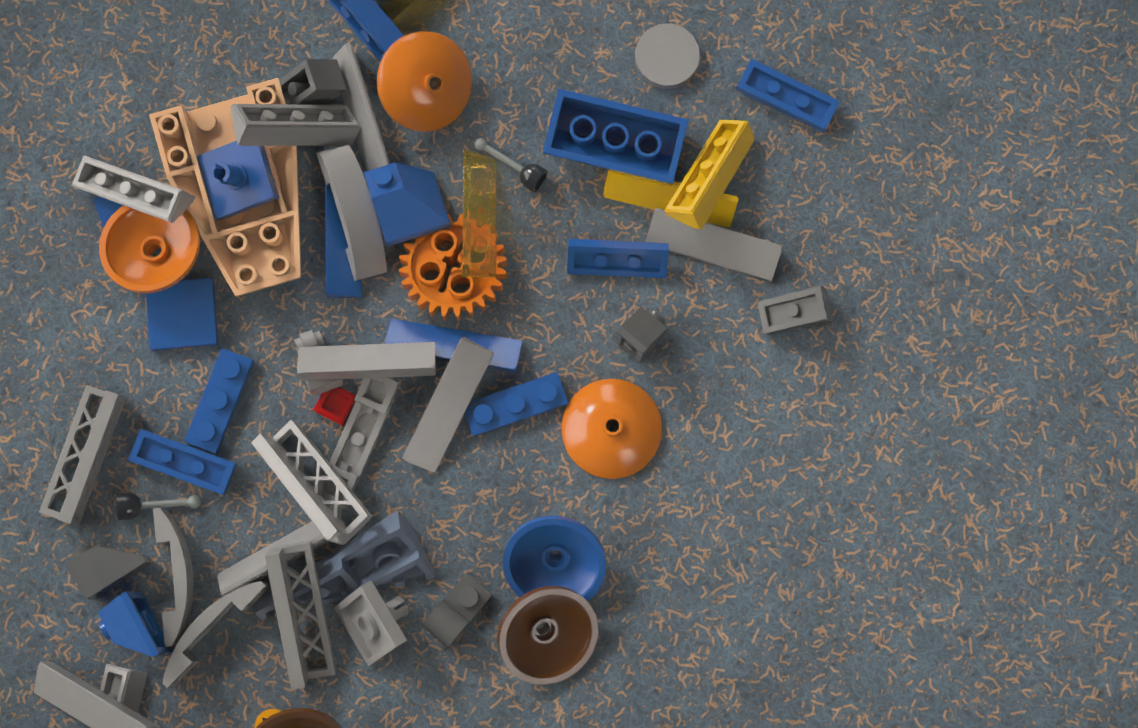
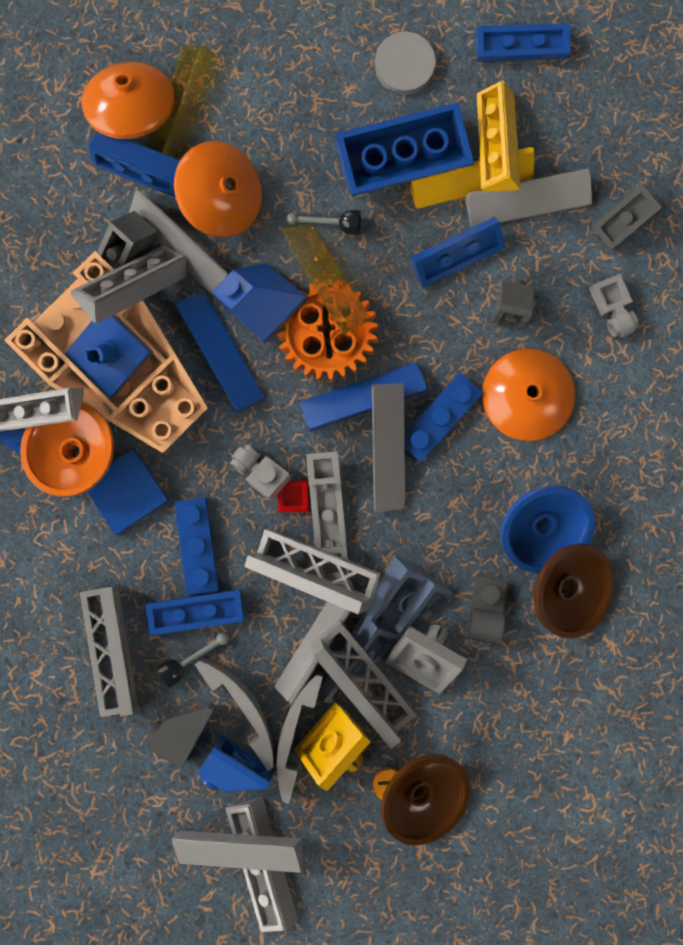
camera: 20 degrees left, 5 degrees up
(238, 658) = (332, 747): none -> yellow tile
(355, 210) = (222, 328): light grey slope -> none
(366, 361) = (302, 447): light grey slope -> none
(739, 378) = (612, 297): none -> light grey plate

